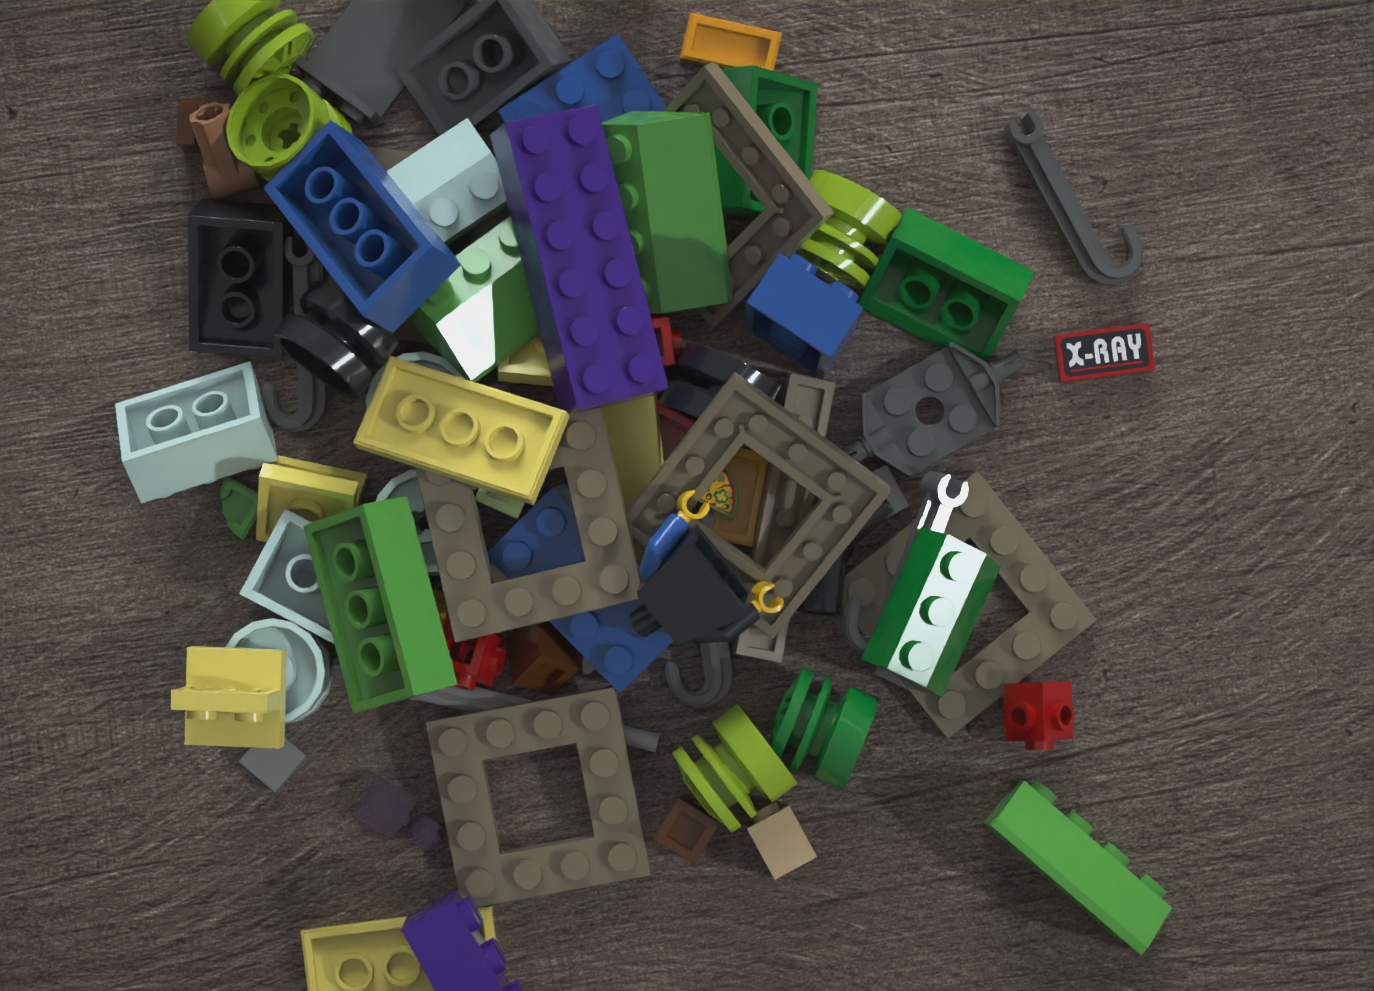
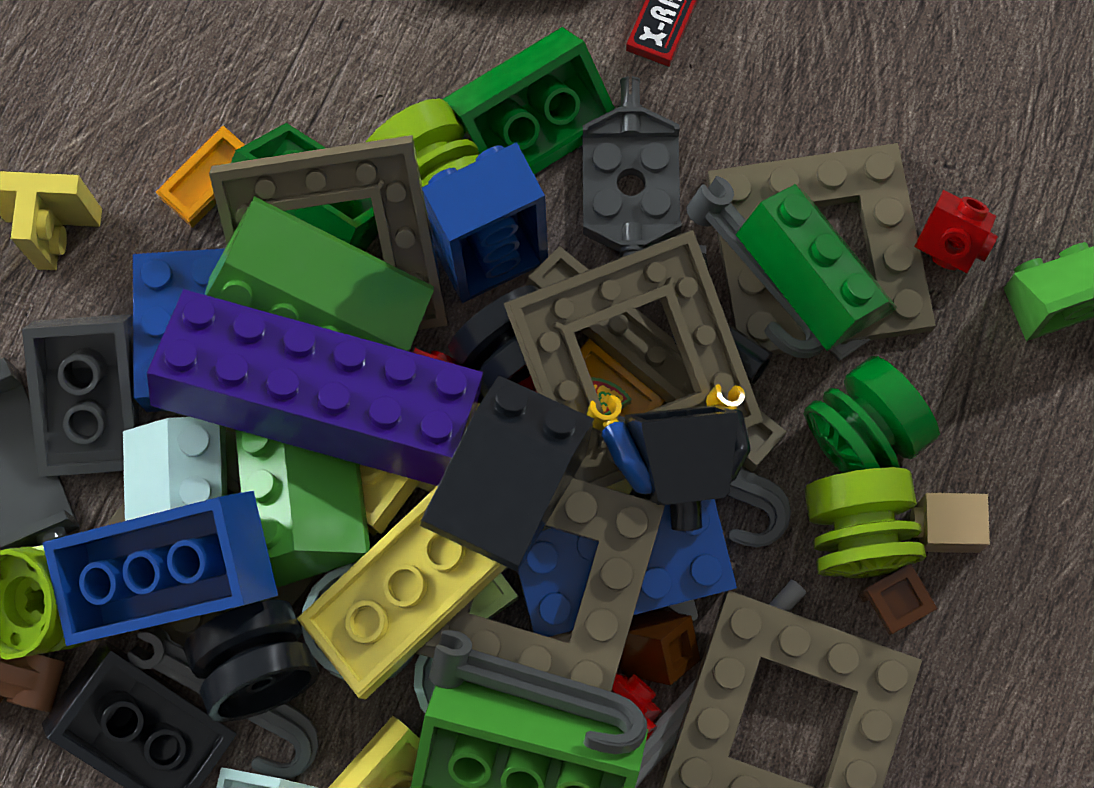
camera: 60 degrees left, 10 degrees down
(422, 504) = (458, 662): none -> dark grey piece
(590, 459) = (508, 473): none -> black slope

